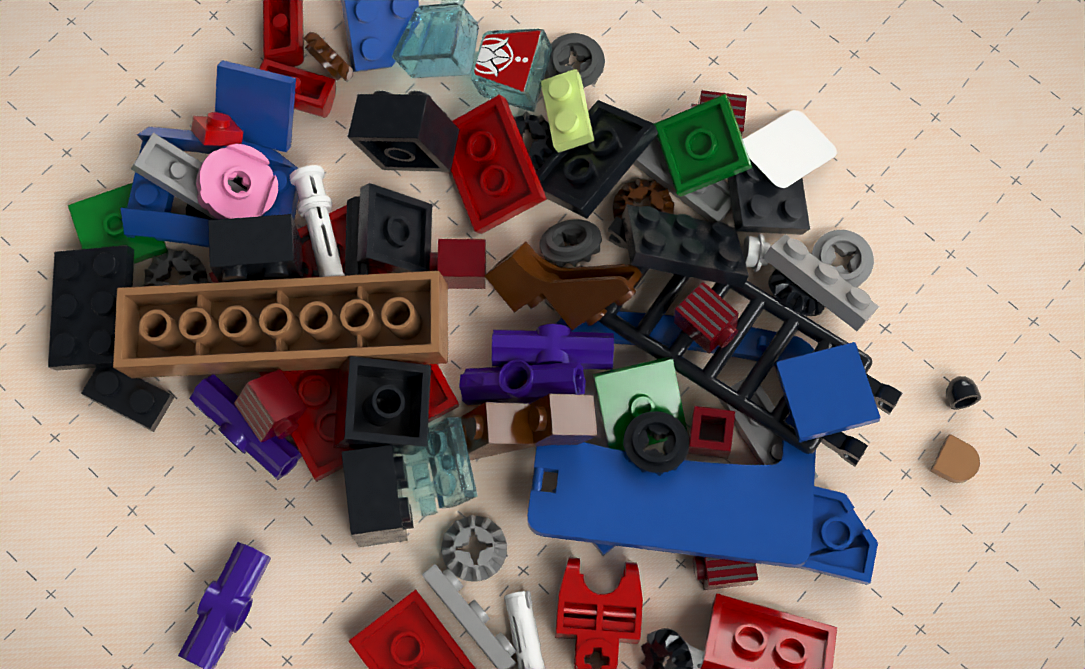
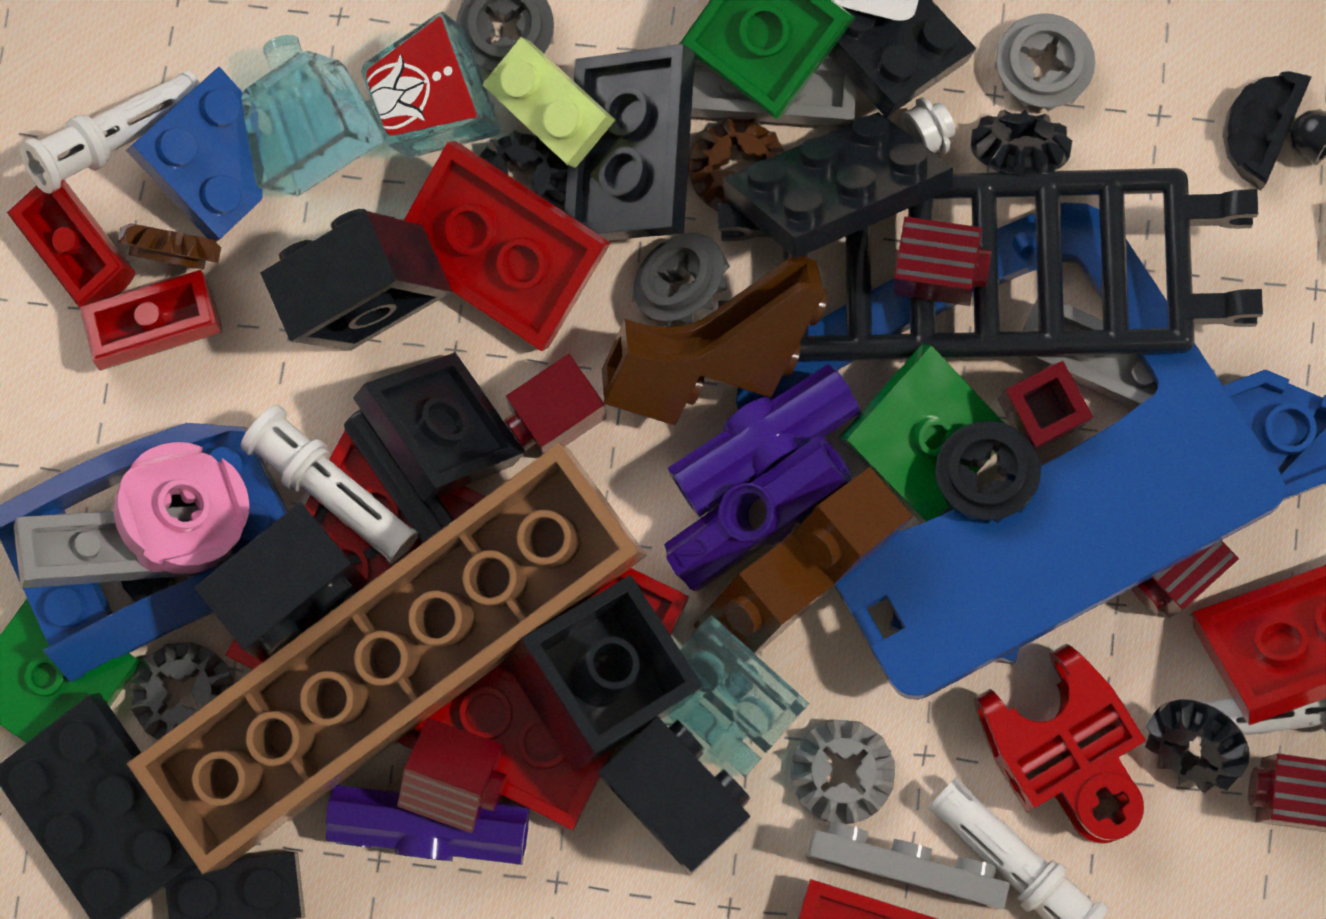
camera: 30 degrees left, 5 degrees up
(216, 129) = (95, 452): red plate -> none
(257, 103) = (119, 382): blue tile -> none
(821, 281) = (1045, 110): light grey plate -> none
(827, 392) = (1163, 254): blue tile -> none
(936, 367) = (1260, 122): none -> black tile

